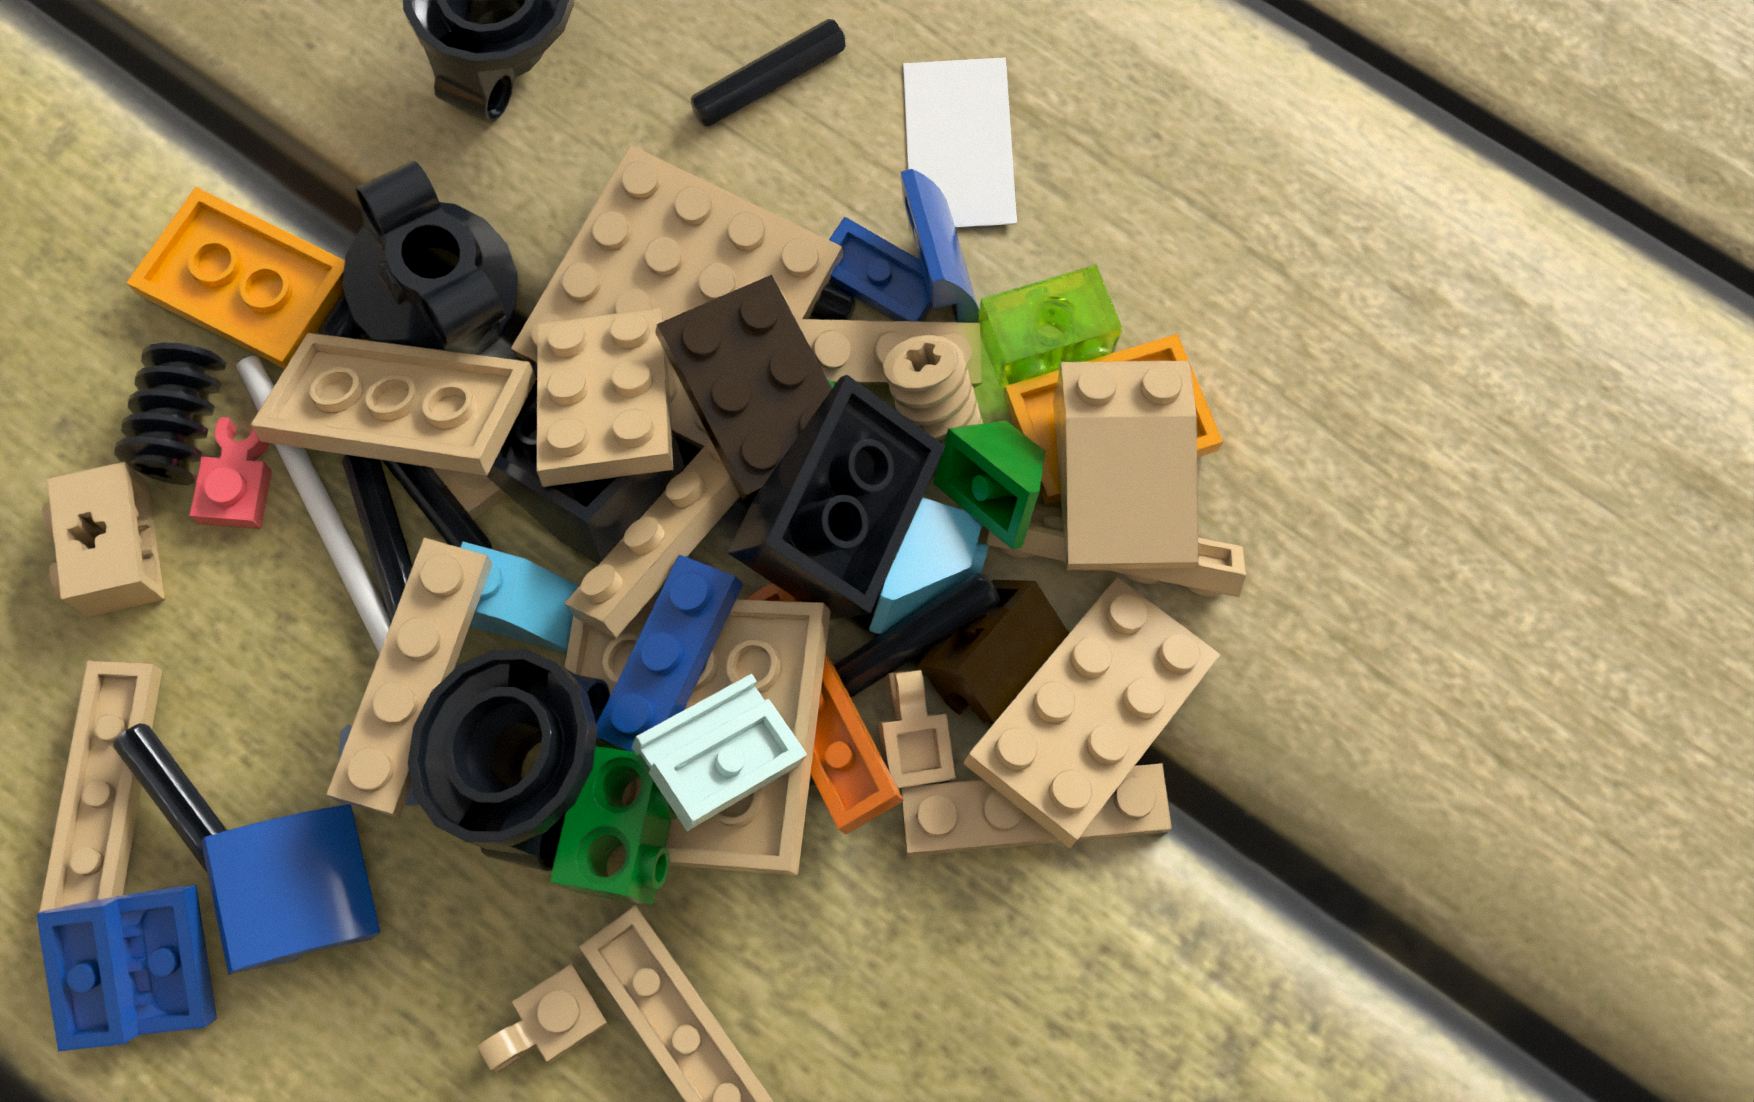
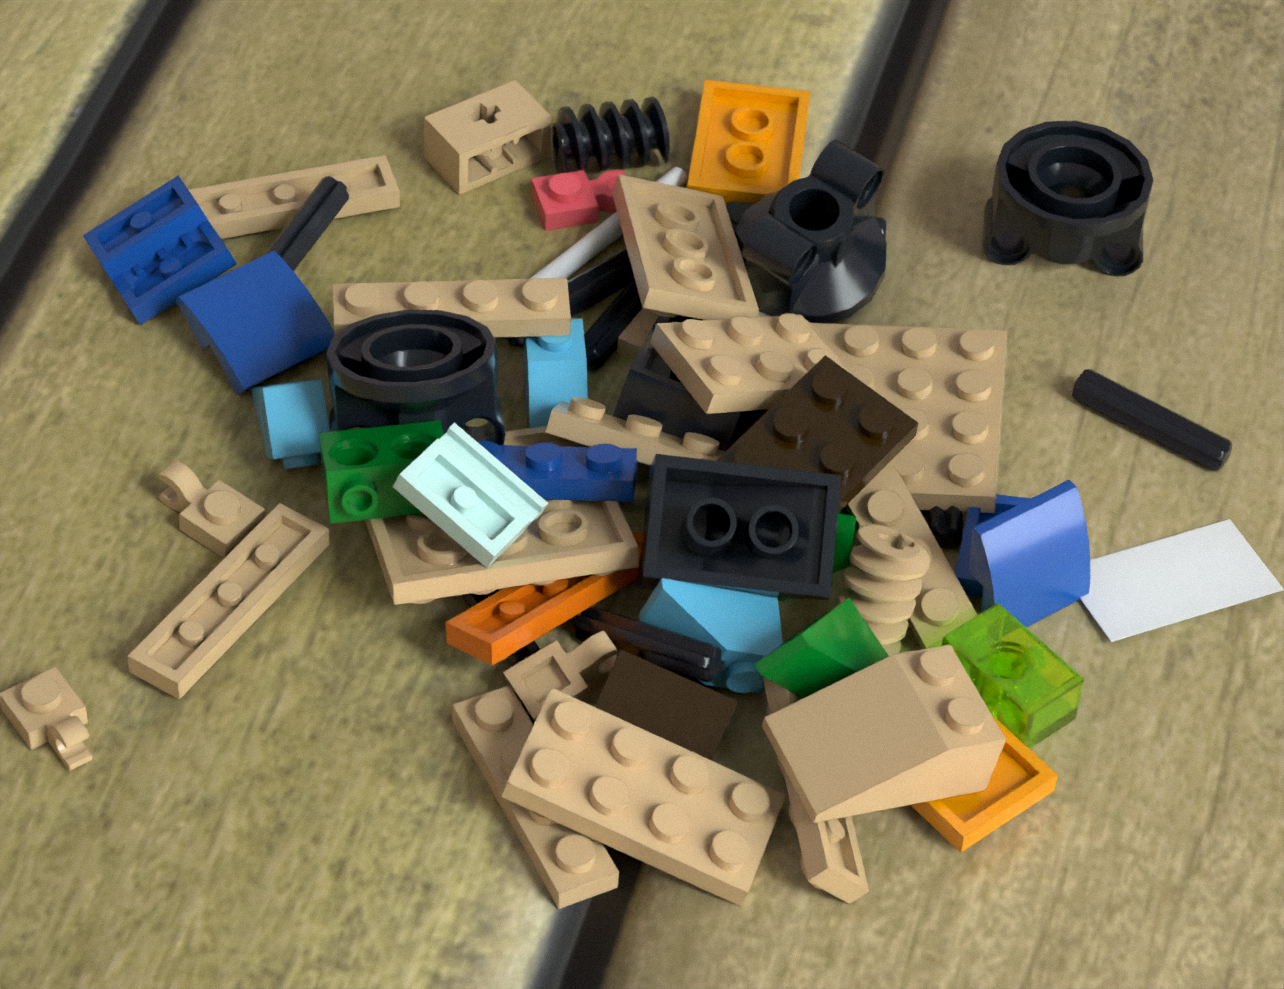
camera: 70 degrees right, 25 degrees down
(452, 893) = (291, 420): none -> medium azure slope

